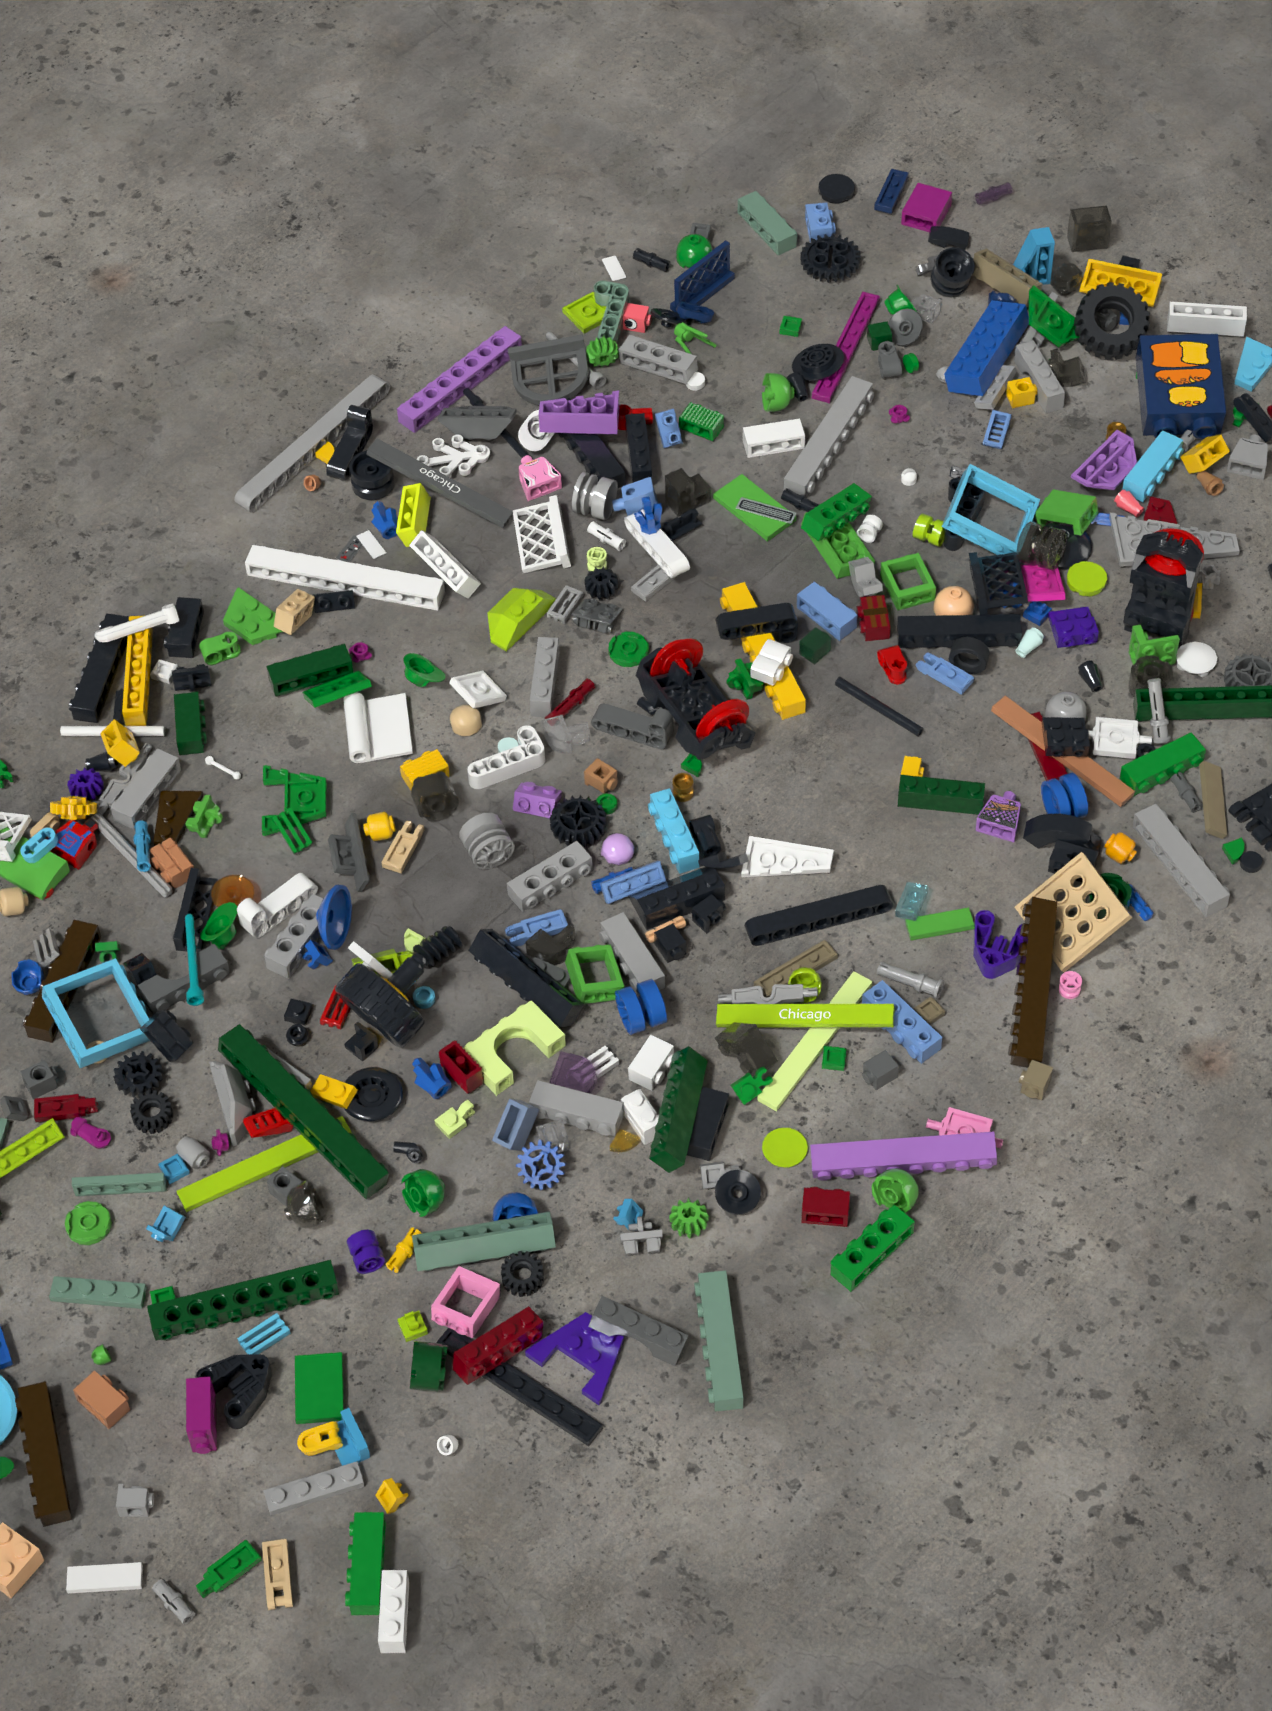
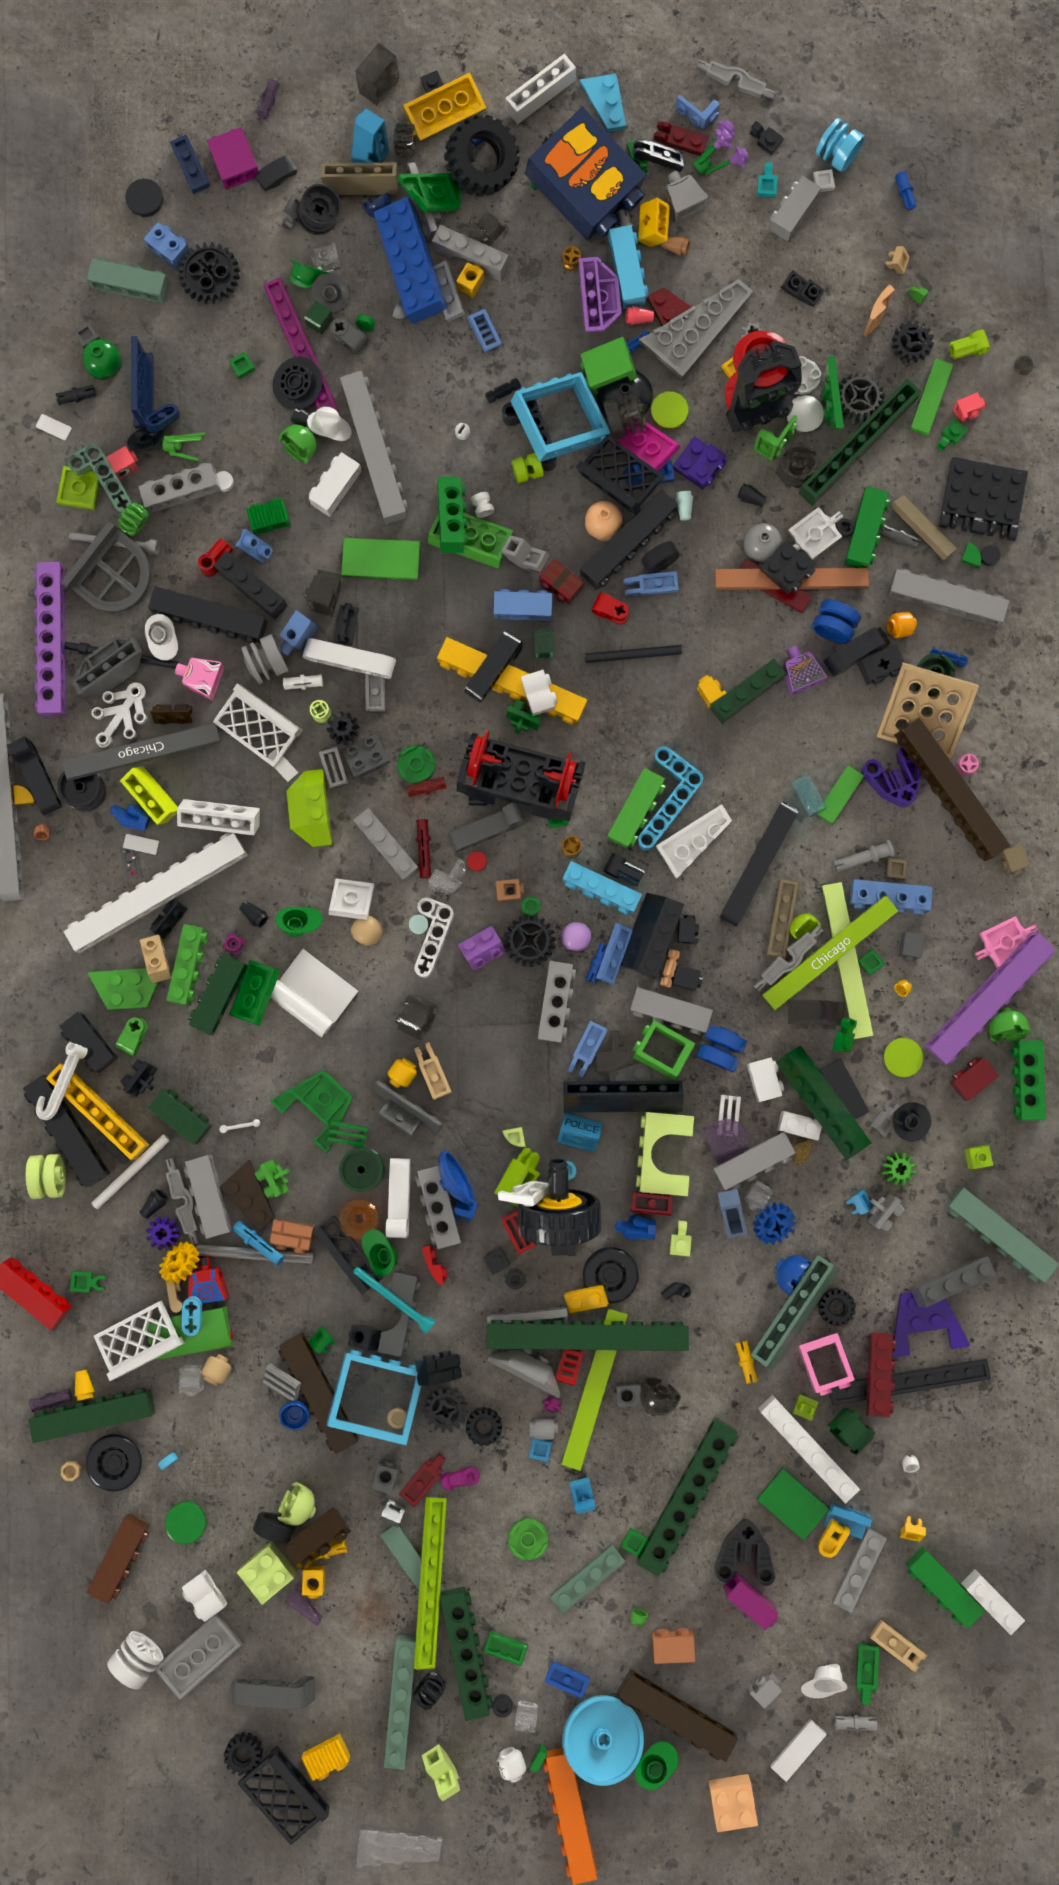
camera: 40 degrees left, 30 degrees up
(53, 677) = (45, 1176): none -> yellowish green wheel
(119, 1184) = (521, 1497): sand green tile -> none
(120, 743) = (154, 1183): yellow brick -> none
(162, 671) = (111, 1089): white tile -> none
(183, 1539) = (825, 1682): none -> white piece
(247, 975) = (437, 1271): none -> red slope
(262, 1332) = (720, 1521): medium azure tile -> none
(274, 860) = (357, 1180): none -> dark green wheel
(311, 634) = (187, 964): none -> bright green brick
(365, 1251) = (728, 1390): dark purple wheel -> none
(378, 1354) = (808, 1449): none -> white brick
(397, 647) = (254, 914): none -> black cone
(423, 1191) = (720, 1313): green cylinder -> none
(428, 763) = (383, 999): yellow brick -> none
(438, 944) = (539, 1127): black piece -> none
(463, 978) = (580, 1132): none -> dark azure panel
(486, 841) = (488, 1018): light grey wheel -> none
(488, 484) = (164, 715): none -> dark brown hinge
(529, 579) = (283, 767): none -> white sticker
(580, 415) = (187, 598): medium lavender wedge -> none
(600, 743) = (476, 861): none -> red tile
(618, 666) = (426, 787): none -> clear red pin
(650, 520) = (331, 646): blue rock -> none
(720, 860) = (658, 883): black slope -> none
(761, 800) = (635, 809): none -> bright green brick
(764, 1264) = (978, 1157): none -> lime brick
(766, 510) = (393, 555): sticker -> none
(798, 501) = (409, 524): black pin -> none
(802, 822) = (673, 800): none -> medium azure beam
(811, 397) = (329, 424): none -> white piece
(840, 1095) = (900, 991): none -> yellow hinge
(899, 414) = (400, 373): magenta plate -> none
(905, 598) = (560, 549): bright green window -> none
(1158, 721) = (824, 477): light grey pin -> none
(1220, 631) = (810, 376): none -> white dish
(1232, 646) = (831, 396): none -> green wing

